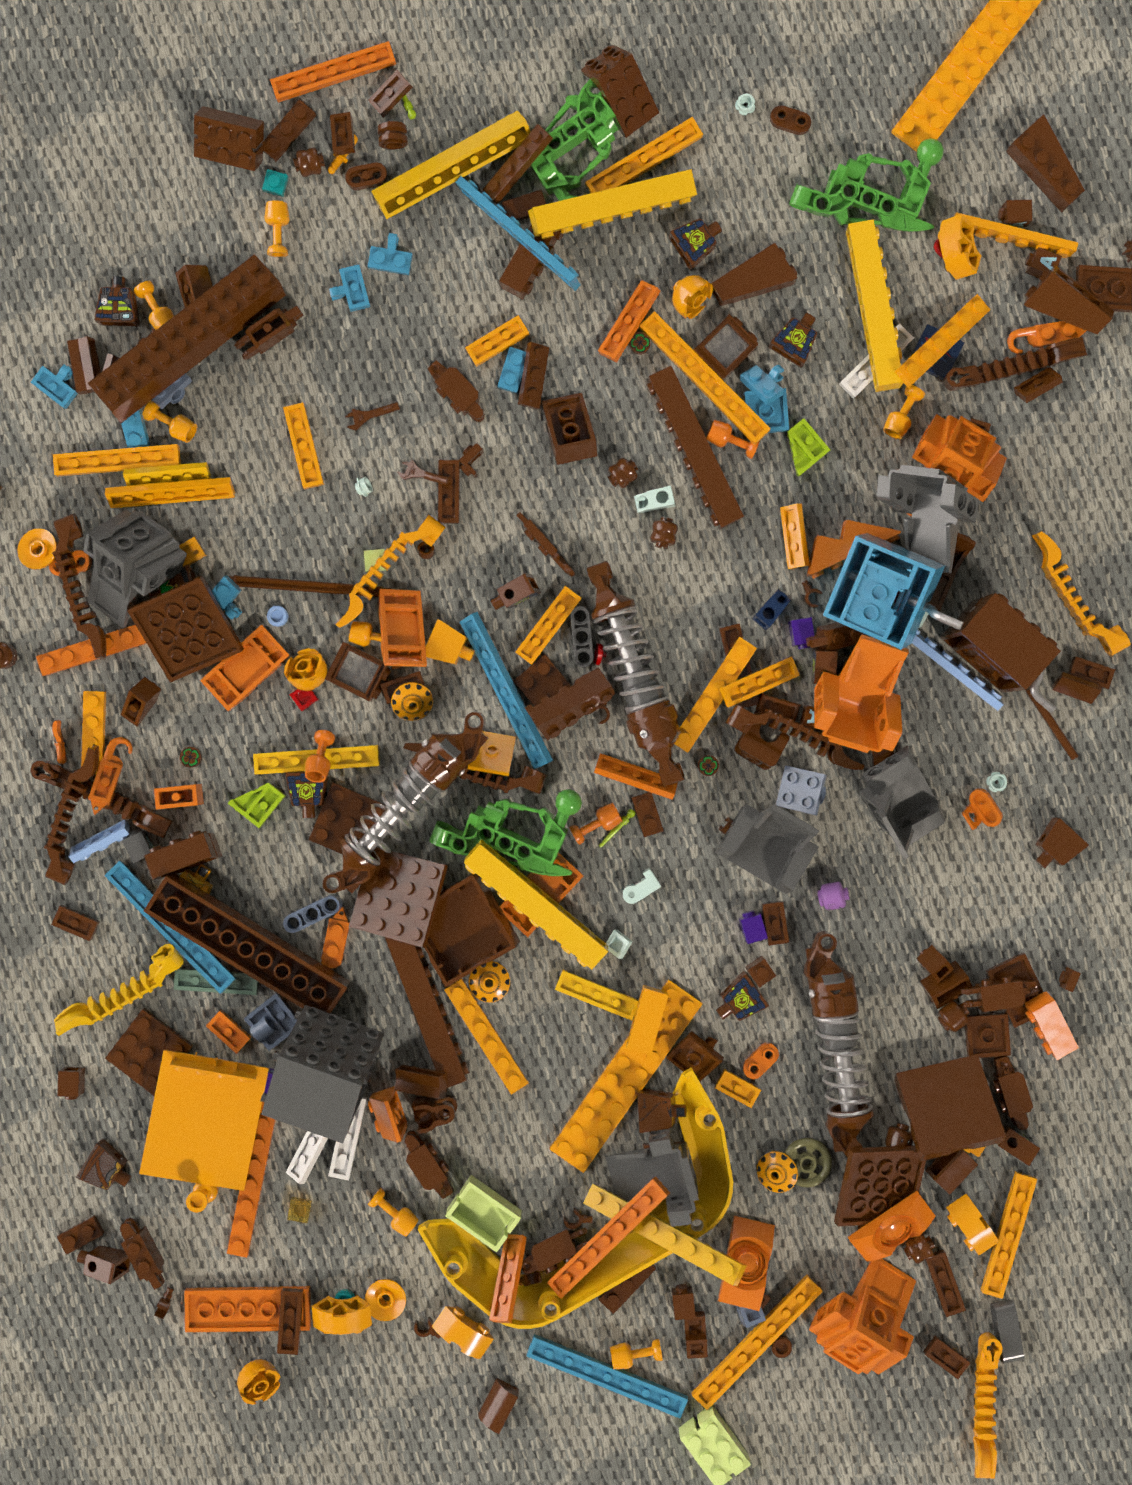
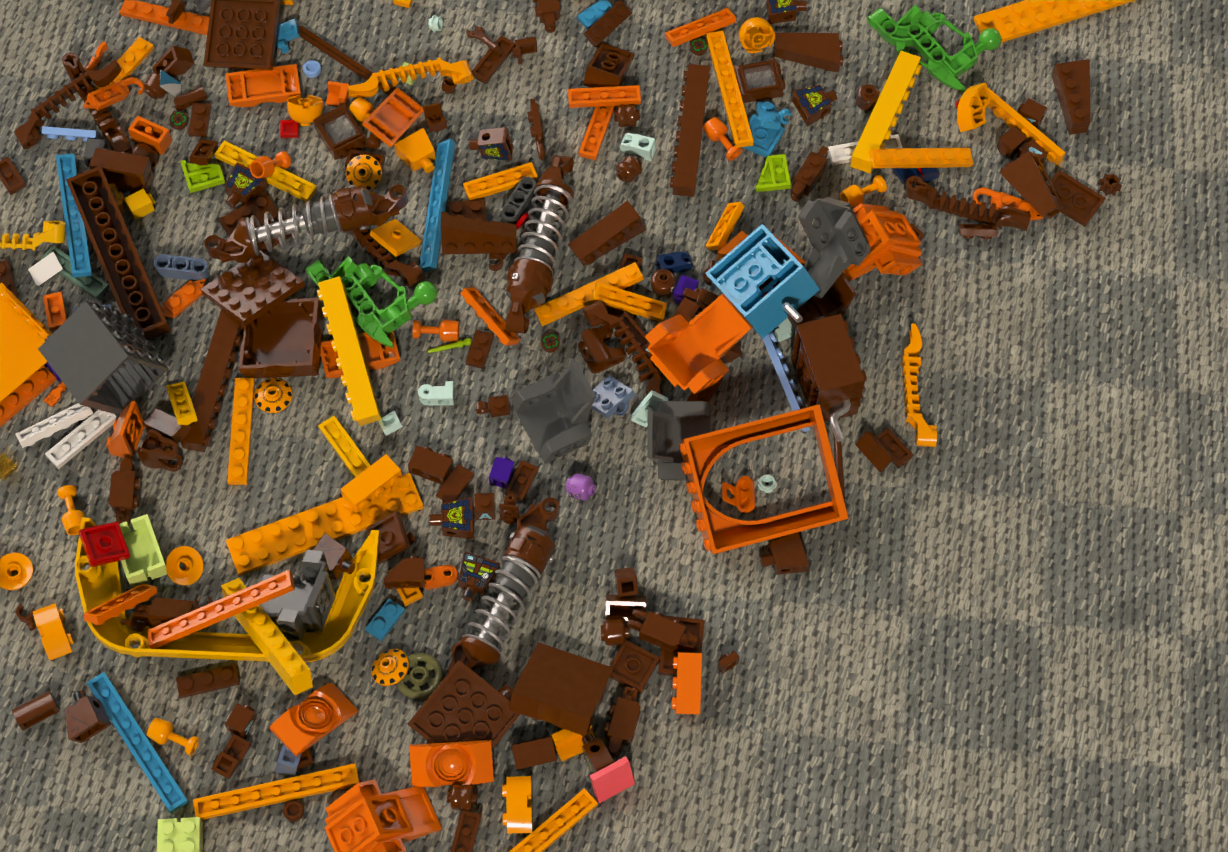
camera: 30 degrees right, 25 degrees down
(143, 736) = (153, 87): none -> reddish brown head
(156, 728) = (170, 84): none -> sticker
(184, 727) = (186, 100): none -> reddish brown bar
(186, 996) = (45, 269): none -> white sticker
(188, 819) = (147, 151): none -> reddish brown head
(210, 743) = (200, 119): none -> reddish brown plate
(223, 873) = (139, 204): none -> yellow brick
(243, 780) = (203, 152): none -> reddish brown plate
(325, 631) = (337, 94): none -> orange panel
(420, 1056) = (181, 403): none -> yellow plate
(438, 597) = (434, 117): none -> reddish brown bracket
(456, 1240) = (104, 544): none -> red tile
(539, 1198) = (192, 565): none -> light orange dish
(550, 1388) = (85, 717): none -> reddish brown torso
(590, 468) = (604, 96): none -> orange plate
(602, 503) = (596, 132): none -> orange plate
(683, 961) = (430, 464): none -> reddish brown brick
(691, 621) = (607, 234): none -> reddish brown wedge
(702, 862) = (496, 406): none -> reddish brown plate
(717, 964) = (455, 484): none -> reddish brown slope
(739, 1085) = (407, 574): none -> reddish brown slope
(741, 1130) = (385, 619): none -> dark azure plate
(771, 643) = (663, 282): none -> reddish brown head
(789, 965) = (509, 511): none -> reddish brown hinge
(796, 1040) = (476, 575): none -> torso
(841, 426) = (809, 174): none -> reddish brown hinge
(846, 299) = (867, 97): none -> reddish brown head
(847, 781) = (650, 402): none -> light aqua plate
(1010, 849) = (726, 533): none -> orange panel
(1015, 262) = (1010, 142): none -> reddish brown brick
(1037, 1162) = (612, 779): none -> coral tile

